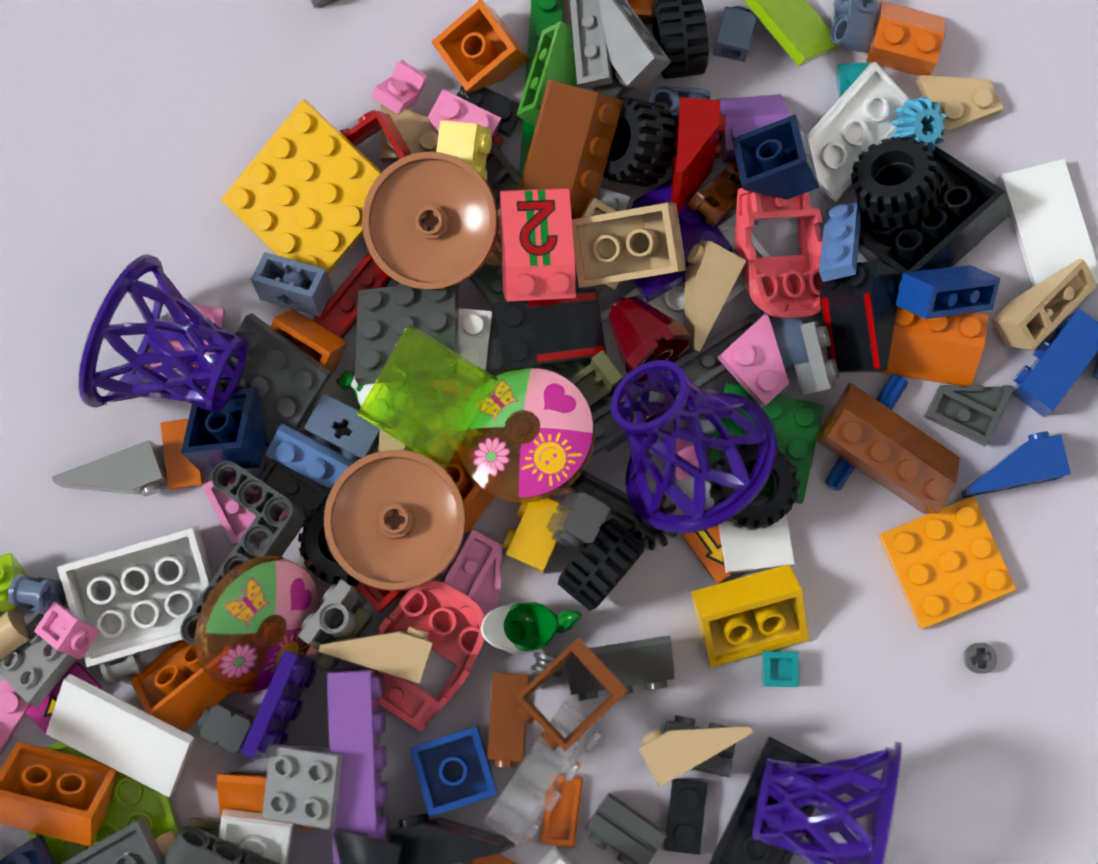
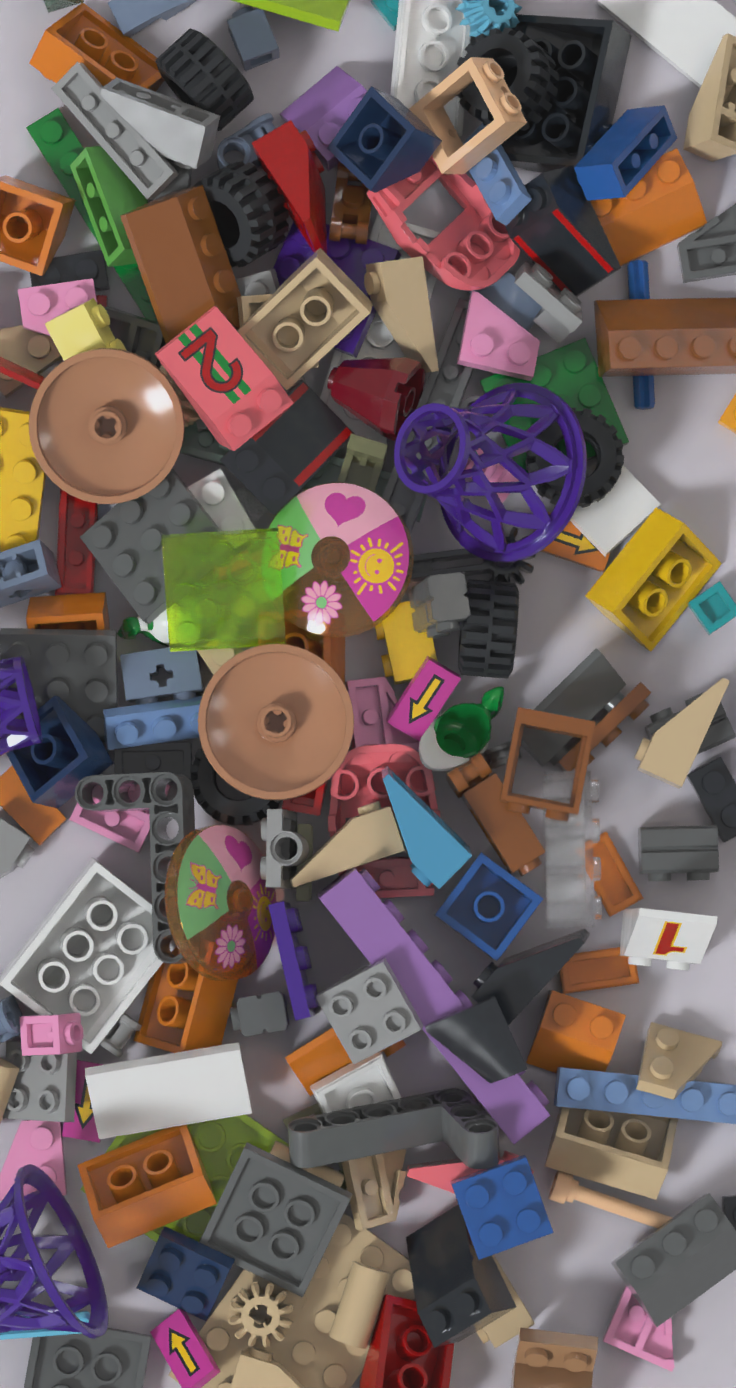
camera: 35 degrees left, 5 degrees up
(443, 689) = (430, 842): none -> dark azure slope
(508, 661) = (468, 775): none -> dark orange plate
(517, 581) = (423, 698): none -> dark pink tile
(636, 702) = (607, 729): none -> dark orange plate
(819, 202) = (451, 154): none -> light nougat window

